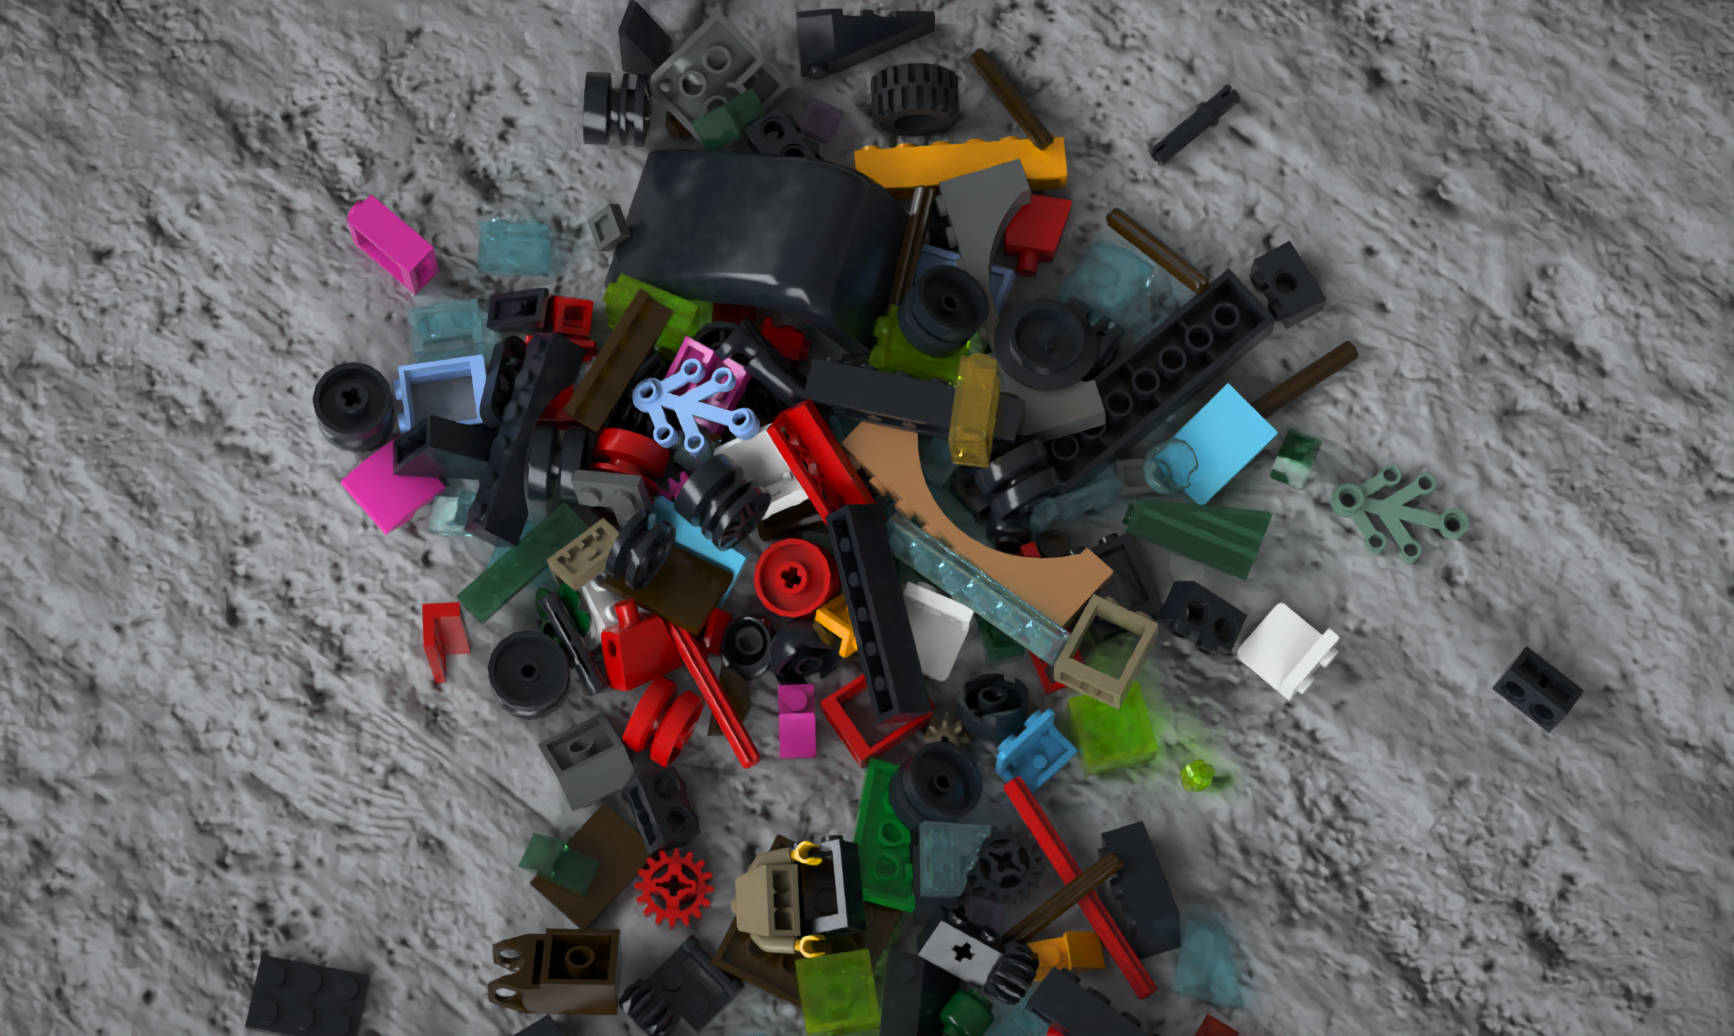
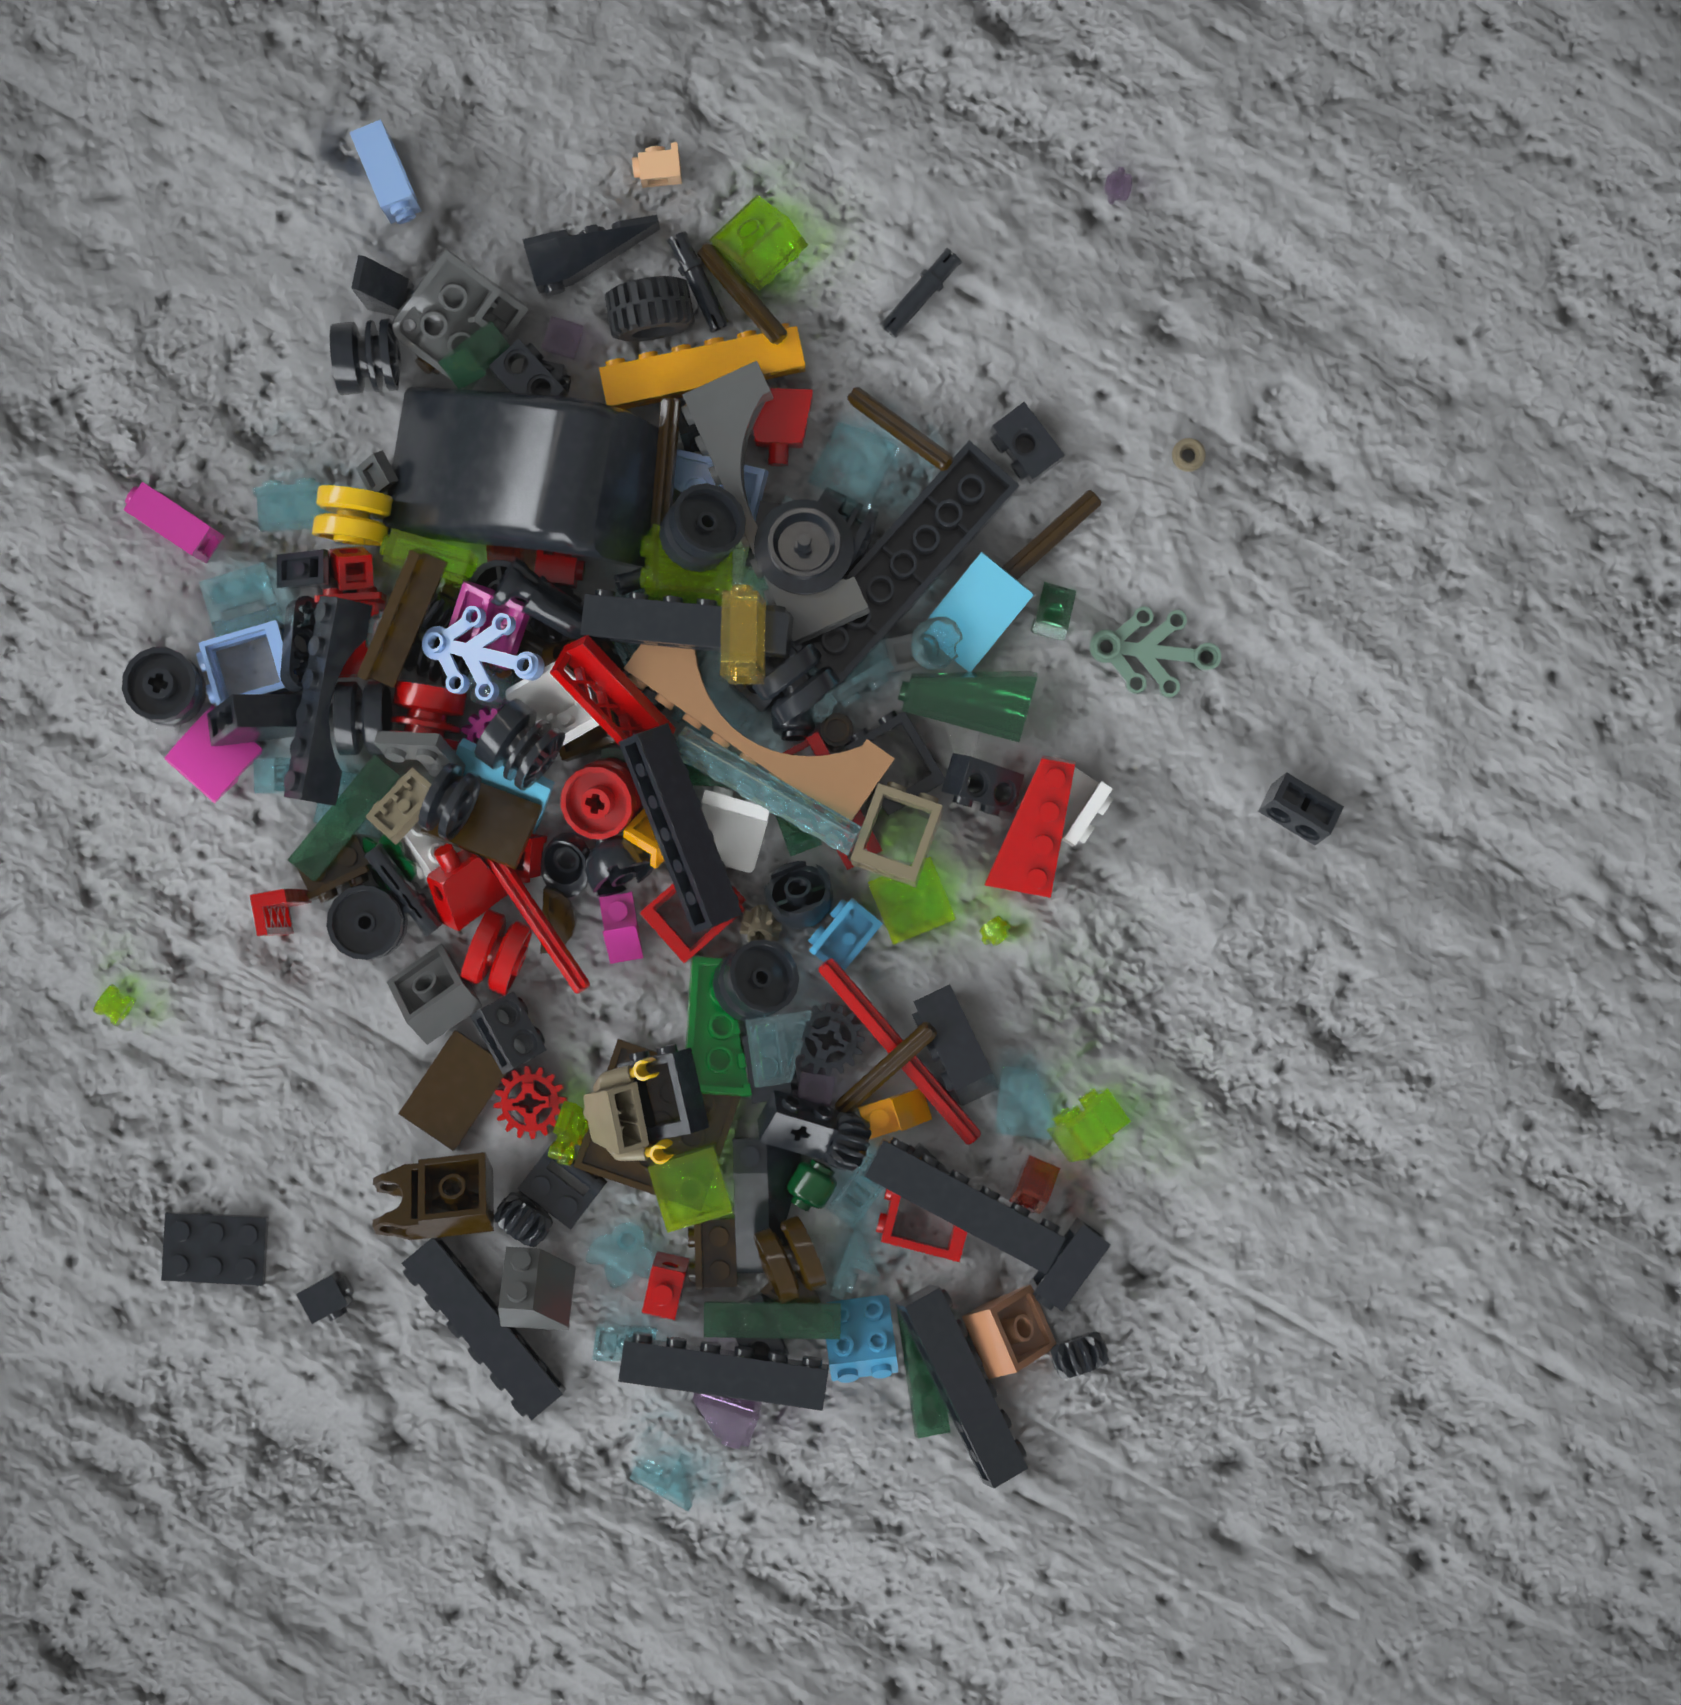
camera: 10 degrees left, 15 degrees up
(245, 727) = (114, 1005): none -> clear neon green wheel
(514, 616) = (347, 868): none -> dark brown bracket
(559, 864) = (422, 1095): clear green slope -> none
(578, 261) = (352, 510): none -> yellow wheel
(714, 920) = (570, 1129): none -> clear neon green plate
(967, 85) = (701, 288): none -> black pin
(1035, 54) = (759, 242): none -> clear neon green slope
(1249, 683) = (1034, 839): none -> red wedge
(1273, 989) = (1088, 1126): none -> clear neon green brick
(1409, 47) = (1118, 185): none -> clear purple plate
(1455, 310) = (1192, 445): none -> dark tan plate

